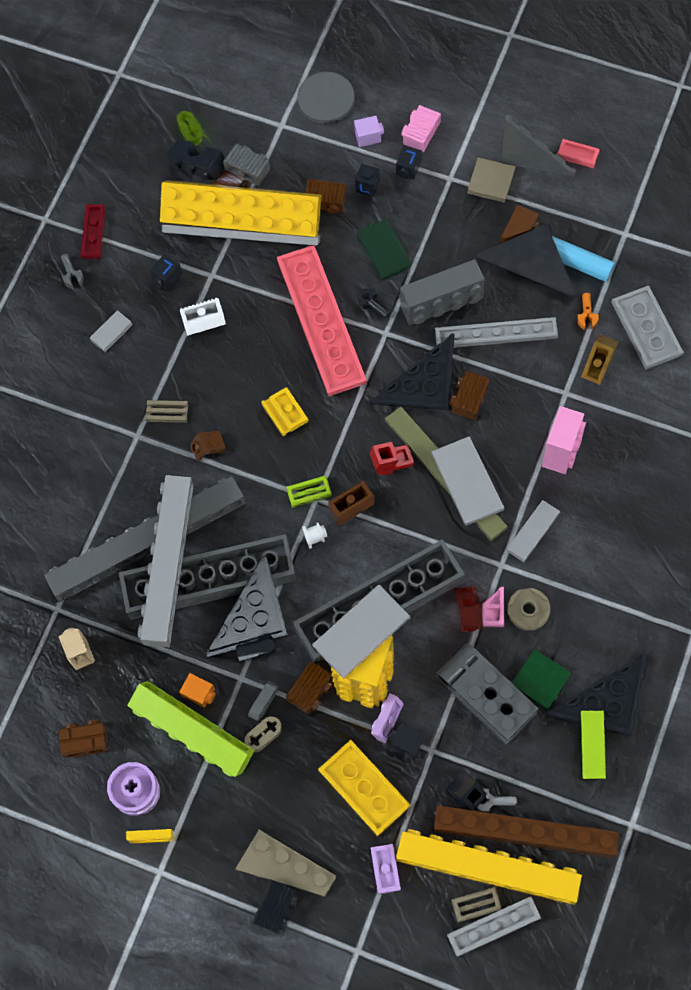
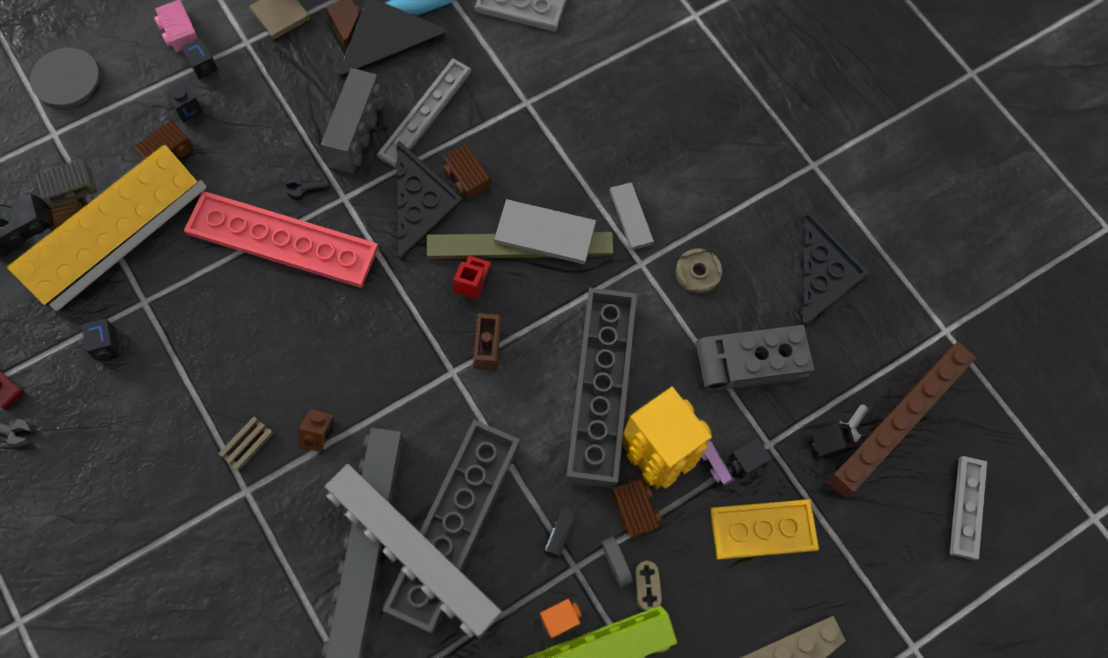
camera: 65 degrees left, 0 degrees up
(111, 331) = (112, 436): light grey tile -> none
(202, 316) = (181, 337): white brick -> none
(253, 616) = (527, 509): tile -> none
(284, 411) = (344, 335): yellow plate -> none
(294, 503) = (433, 390): lime tile -> none
(314, 534) = (488, 397): white brick -> none
(361, 631) = (649, 411): light grey tile -> none
(368, 131) = (135, 67): lavender brick -> none
(384, 249) = (261, 140): clear green piece -> none
(385, 869) = (856, 565): lavender plate -> none
(468, 608) = (664, 316): clear red slope -> none
(489, 867) = (912, 474): yellow brick -> none
(494, 610) = (678, 299): bright pink tile -> none
(495, 899) = (931, 528): dark tan tile -> none
(541, 679) = (770, 306): dark green tile -> none
(564, 440) = (577, 126): bright pink brick -> none
(587, 313) = (470, 34): orange bar -> none
(593, 745) = (859, 308): lime tile -> none
(599, 359) = (521, 53): pearl gold slope -> none

